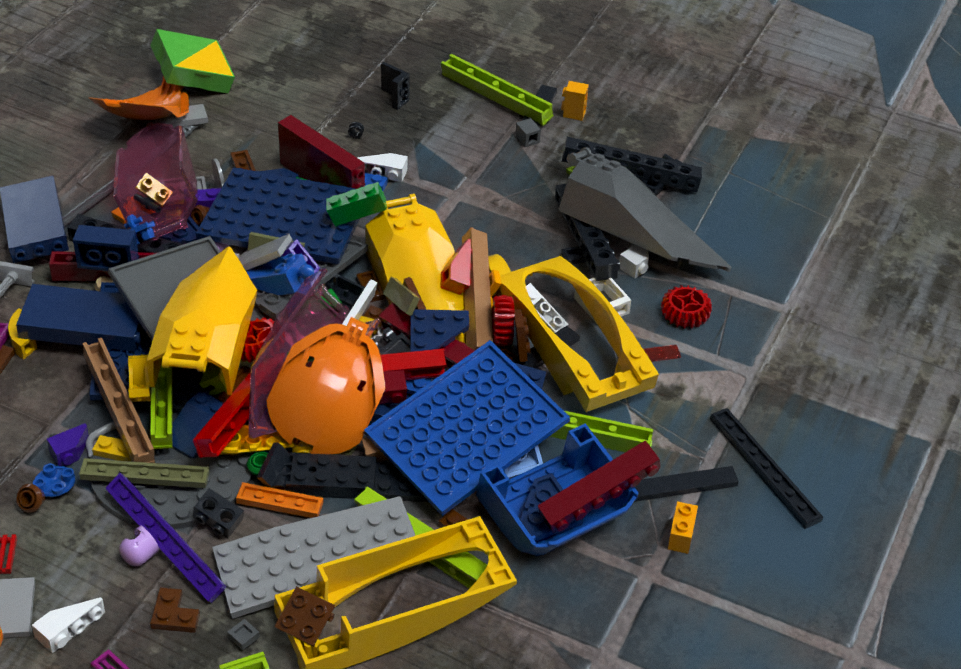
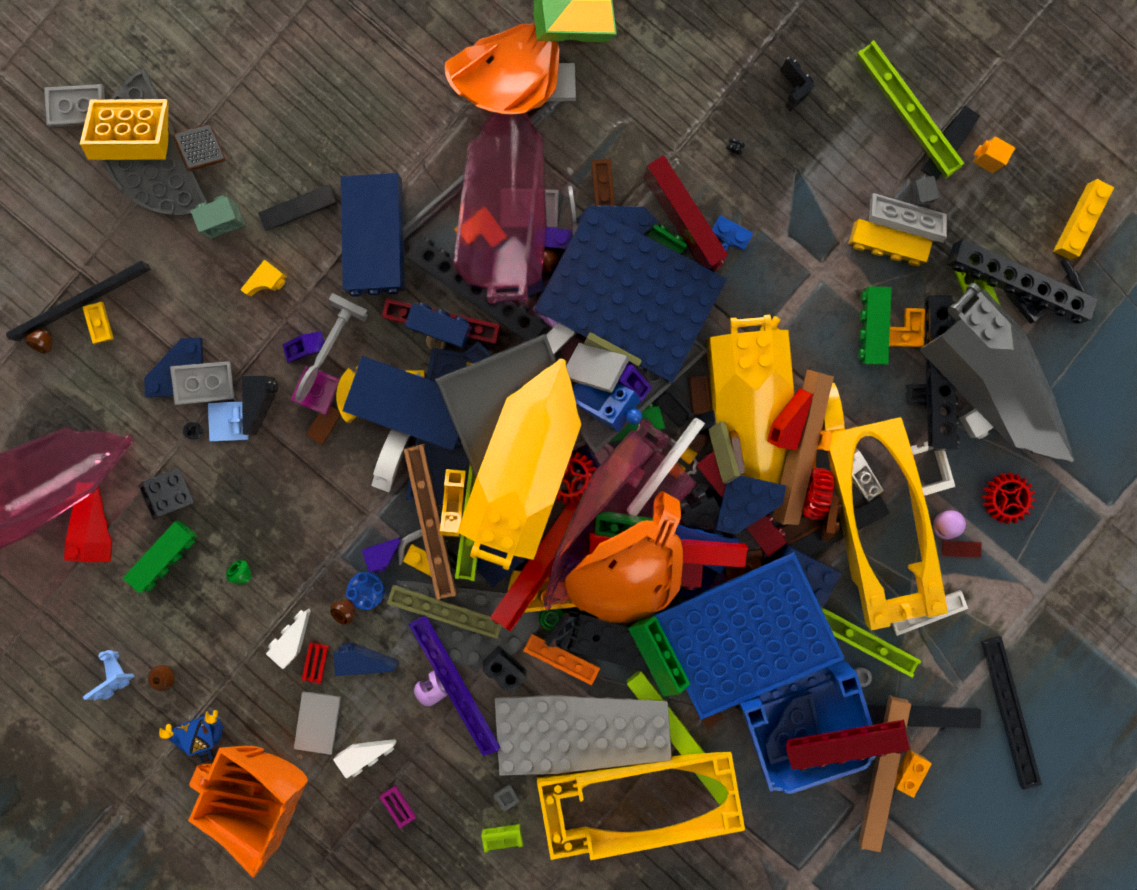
camera: 15 degrees right, 45 degrees up
(60, 529) = (357, 659): none -> dark blue slope
(66, 372) = (389, 460): none -> white arch
(144, 229) = (474, 294): blue hips -> none
(147, 203) = (491, 238): black bar -> none
(154, 189) = (500, 226): yellow hips -> none
(168, 614) = (448, 761): reddish brown plate -> none
(305, 616) = (558, 819): reddish brown hinge -> none
(356, 204) = (705, 325): green brick -> none
(380, 299) = (709, 420): none -> black slope
(381, 458) = (659, 656): none -> green brick
(386, 165) = (756, 217): white slope -> none
(510, 164) = (890, 242): none -> yellow brick
(517, 216) = (875, 326): none -> green brick
(526, 147) = (908, 218): none -> light grey plate
(550, 220) = (913, 331): none -> light orange tile
(641, 325) = (949, 523): none -> lavender helmet
(648, 403) = (955, 603): none -> white tile
(656, 543) = (882, 784): none -> medium nougat tile
(668, 128) = (1083, 219): none -> yellow brick

